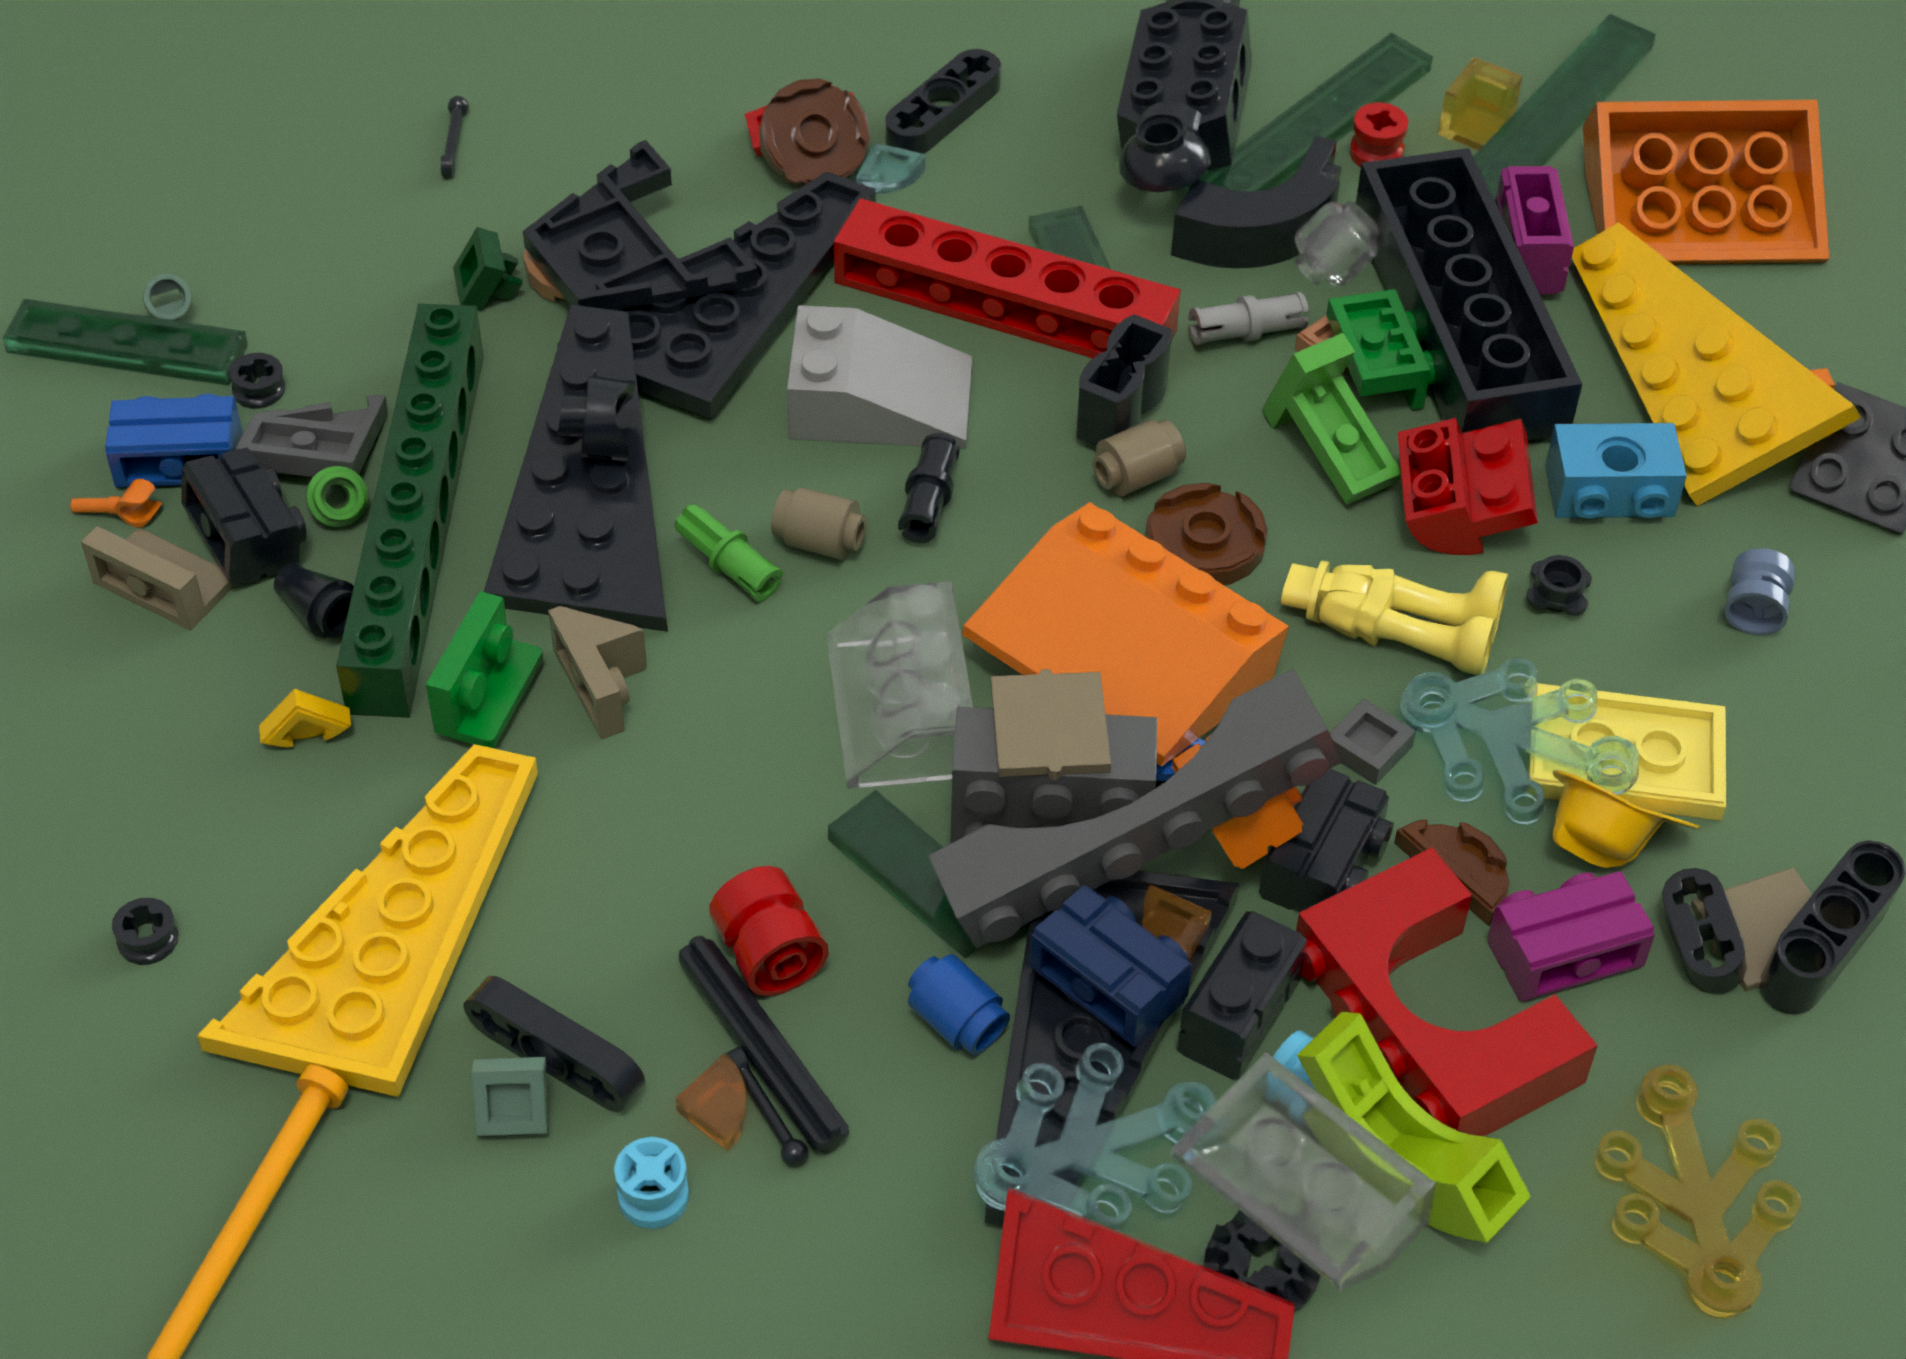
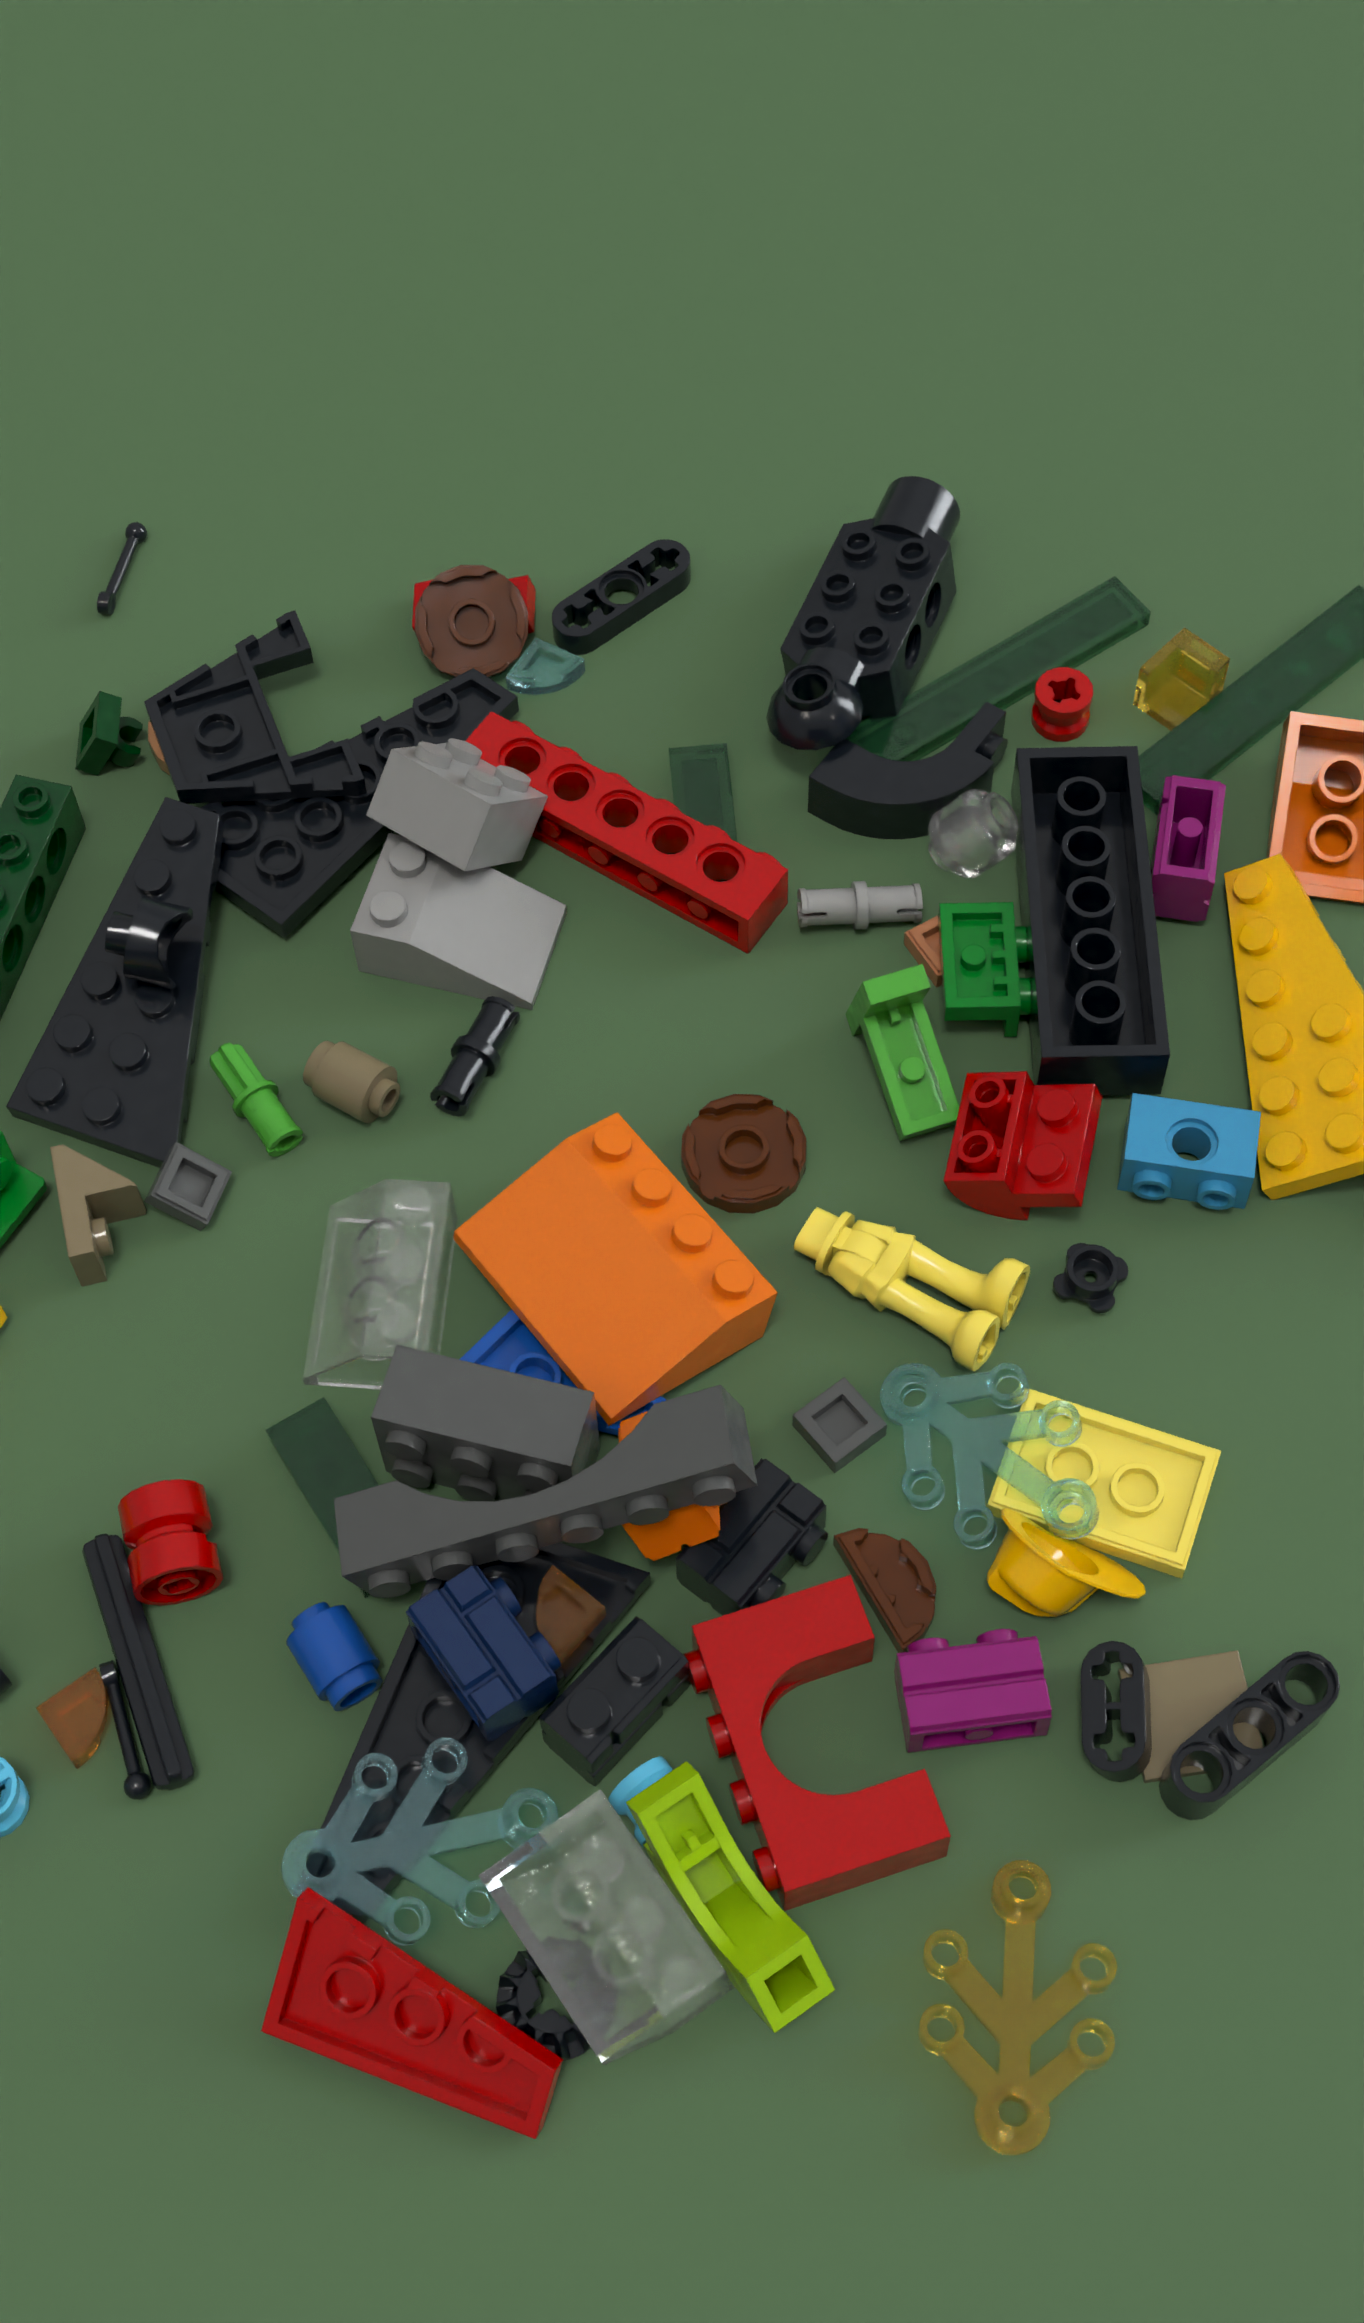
camera: 15 degrees right, 10 degrees up
(685, 633) = (188, 1186): none -> dark grey tile
(863, 272) = (457, 804): none -> light grey brick
(1050, 724) = (481, 1383): dark tan piece -> none
(1124, 379) = (700, 969): black brick -> none
(1138, 456) = (695, 1055): dark tan brick -> none
(1760, 591) = (1297, 1326): sand blue wheel -> none

